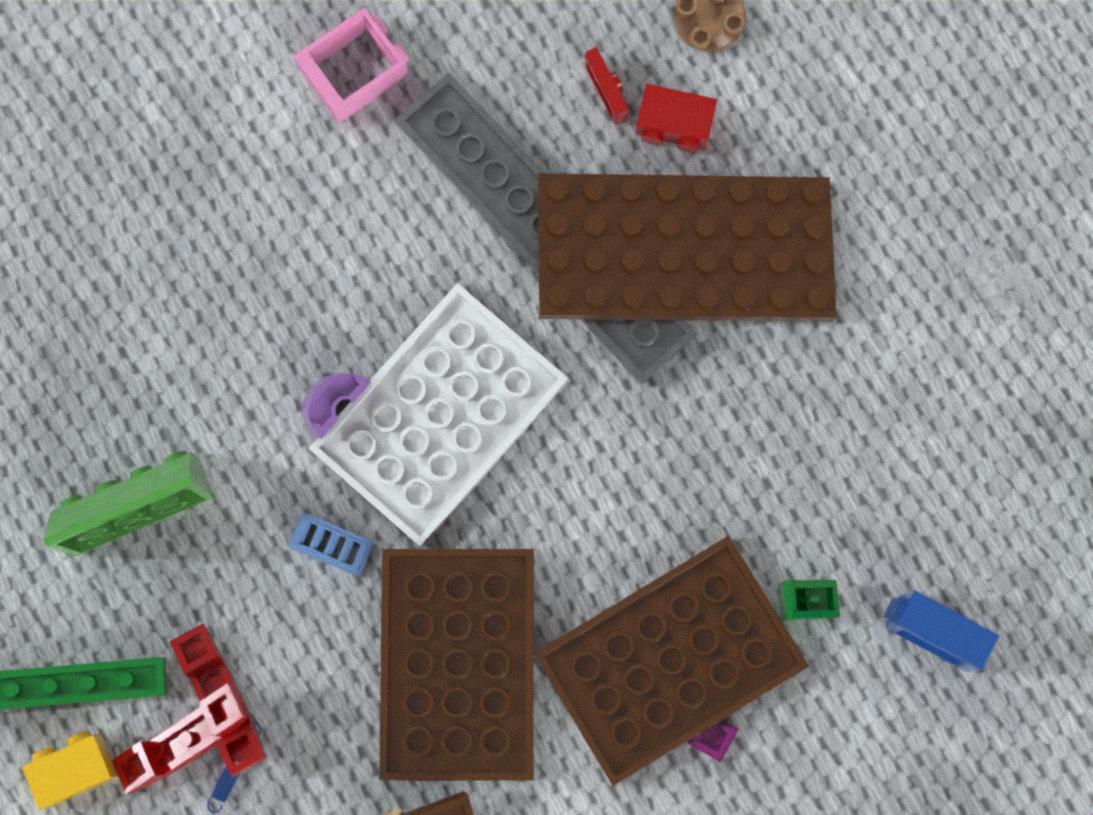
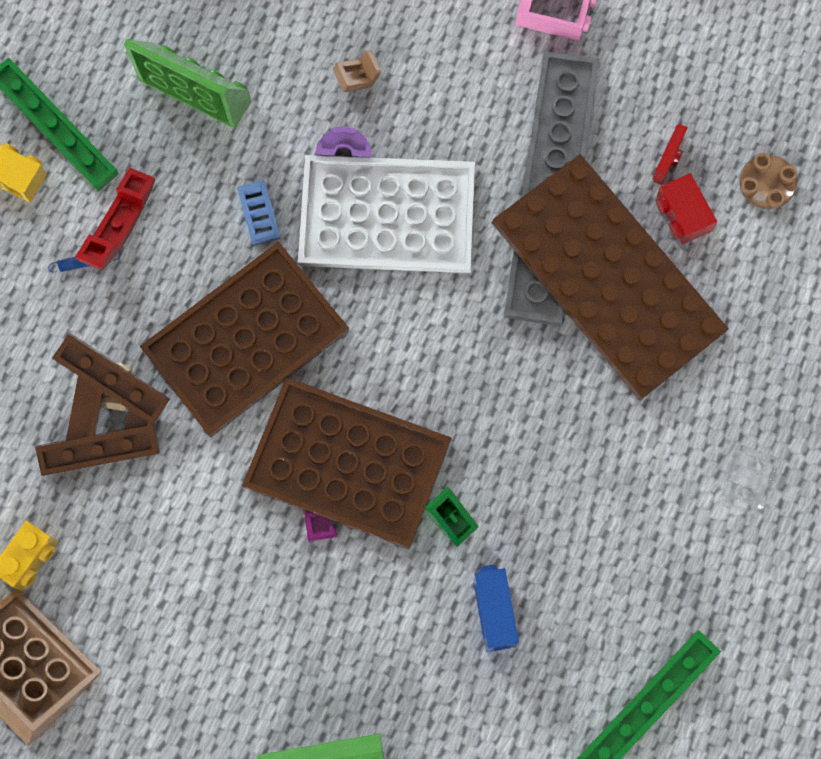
camera: 50 degrees right, 5 degrees down
(181, 743) = (74, 219): slope -> none
(261, 323) = (358, 73): none -> medium nougat bracket

